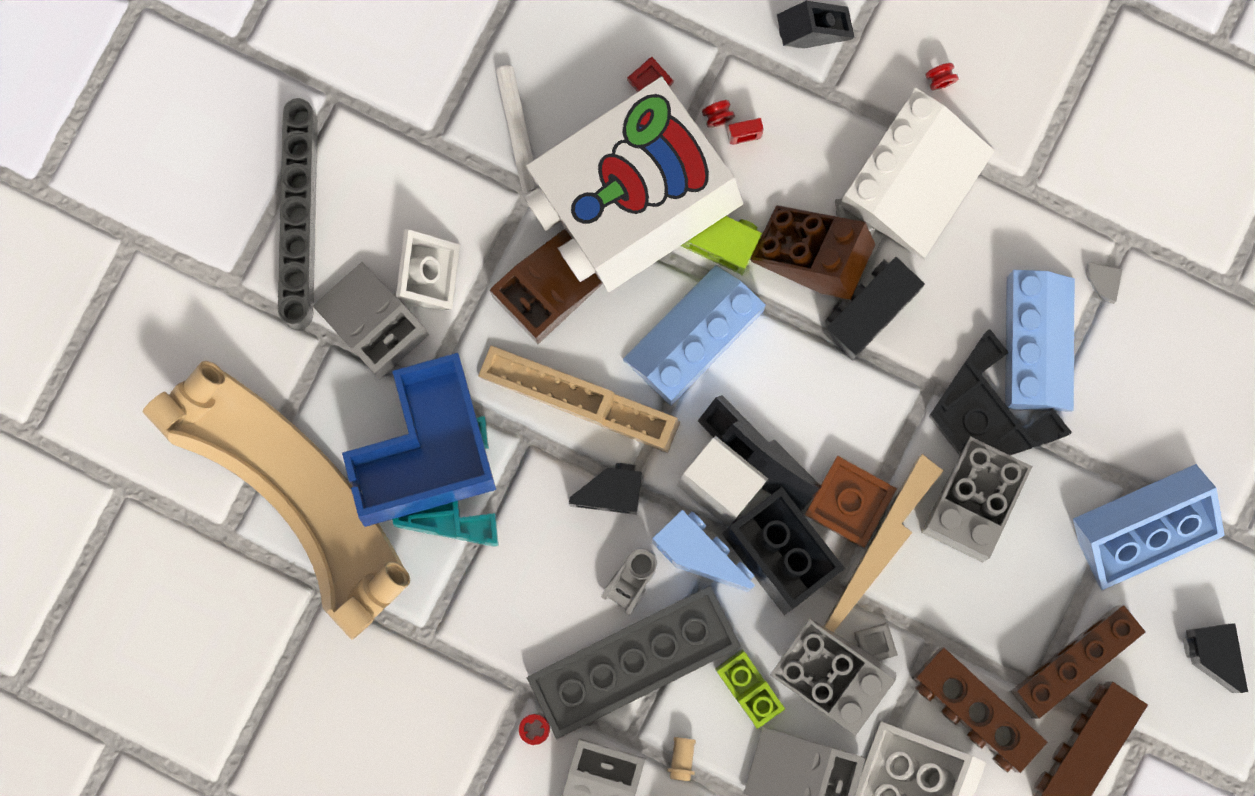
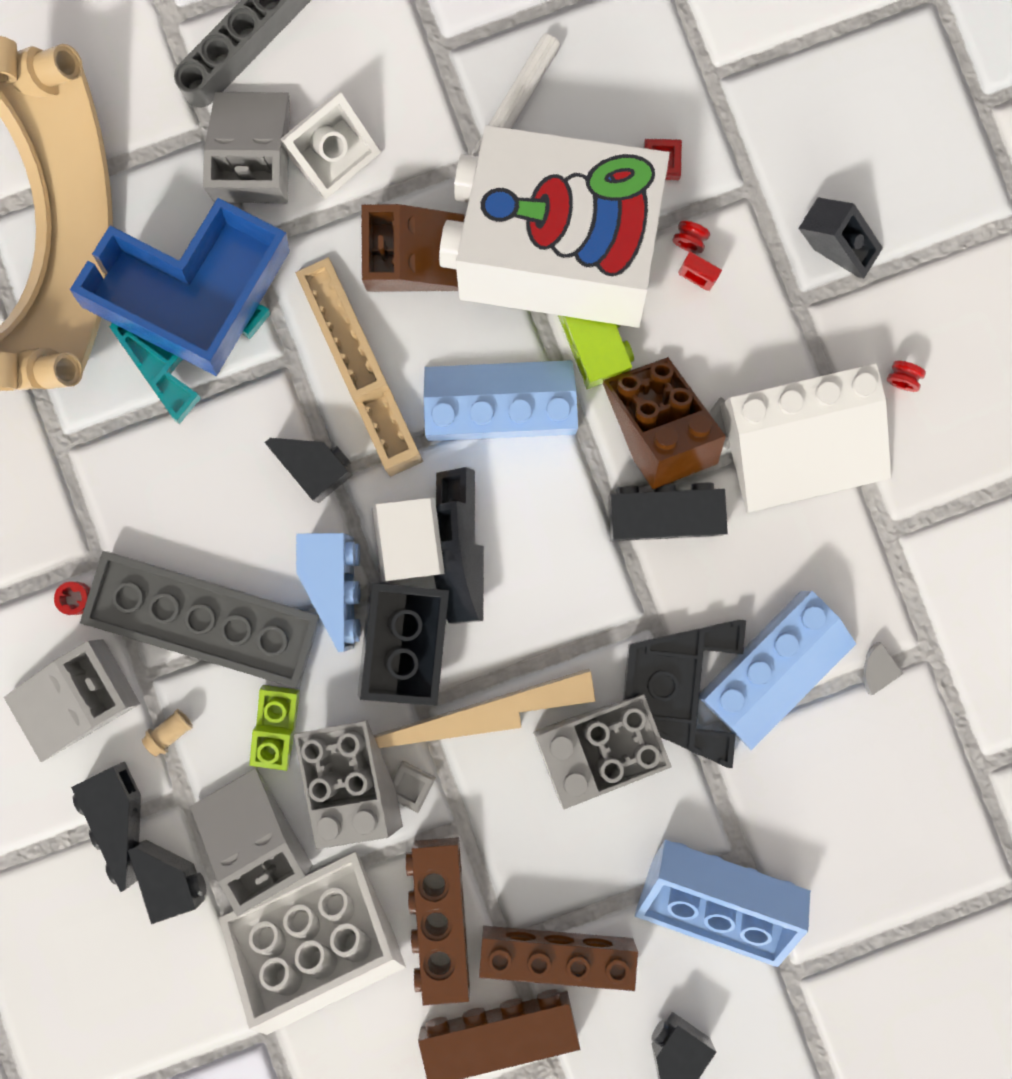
camera: 40 degrees right, 5 degrees up
(630, 582) = (255, 552): light grey piece -> none
(850, 502) = (497, 654): dark orange plate -> none

